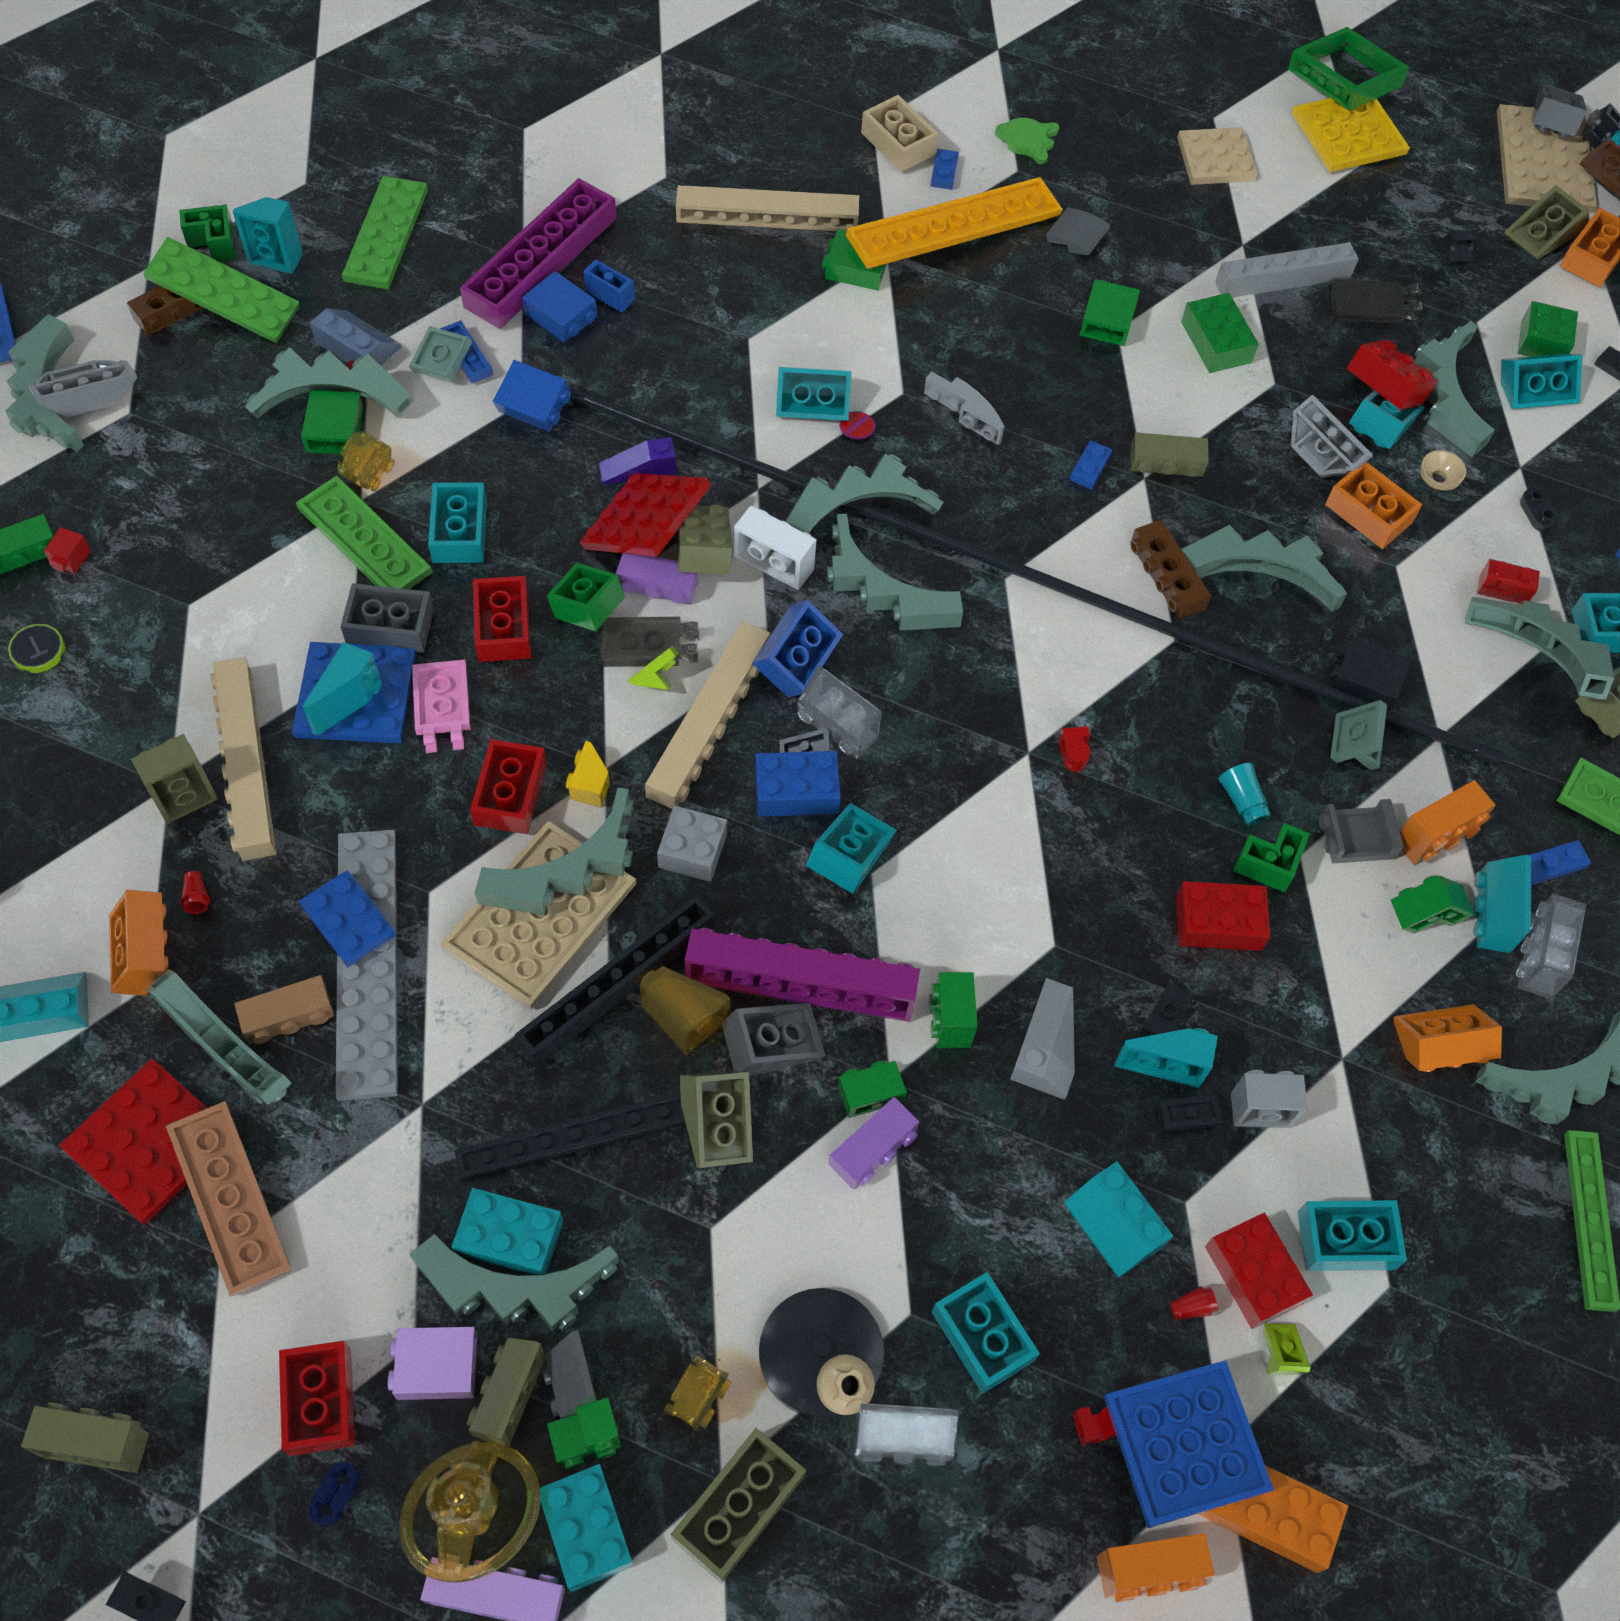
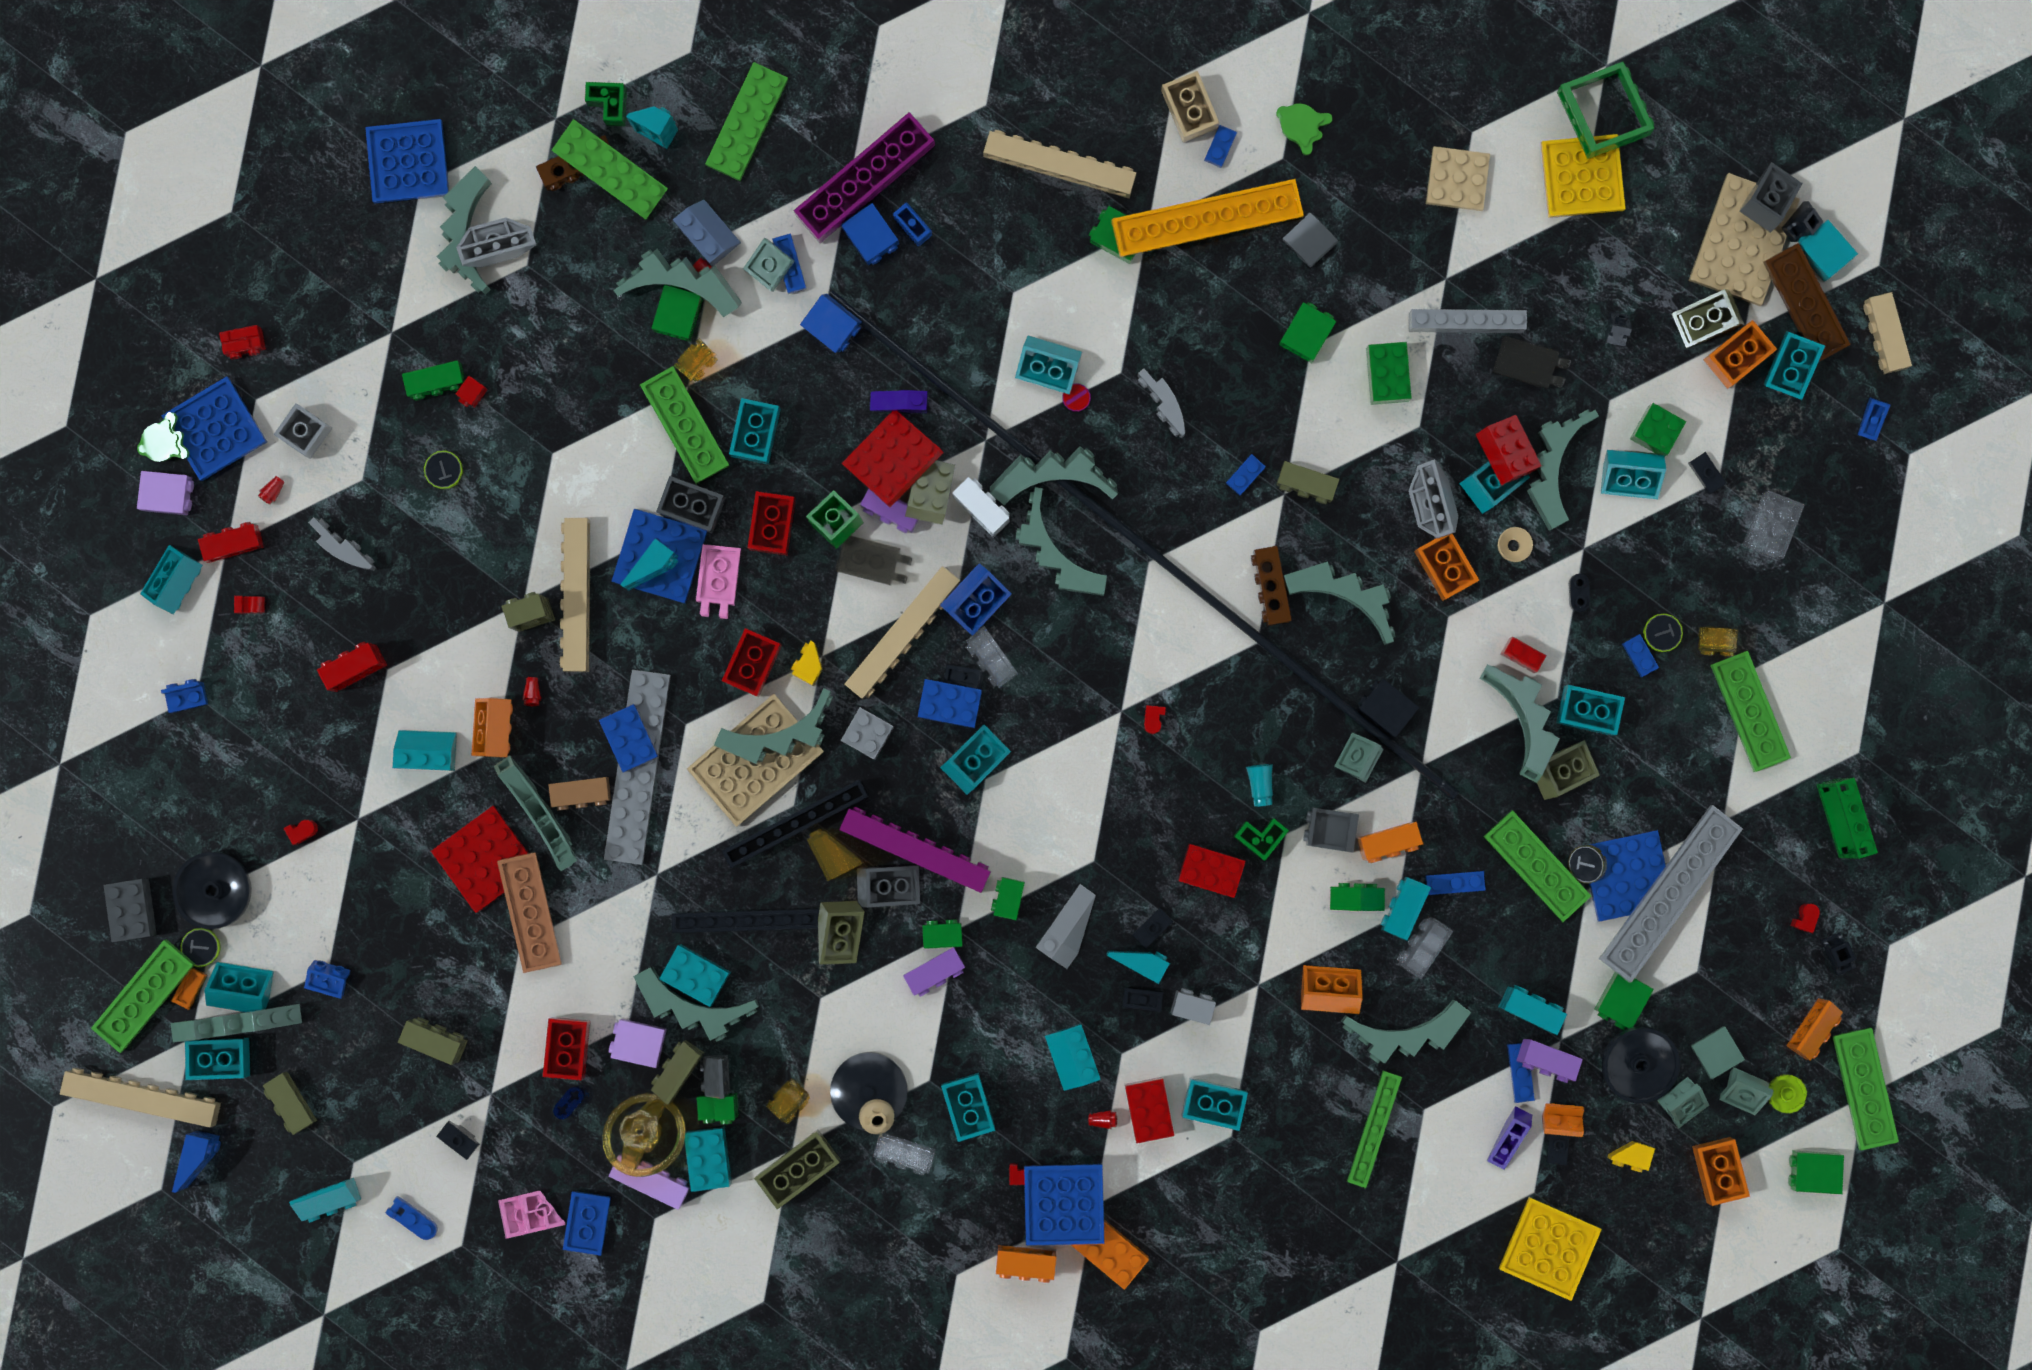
camera: 25 degrees right, 25 degrees up
(651, 676) = (871, 592): lime slope -> none
(1285, 1350) = (1148, 1161): lime slope -> none

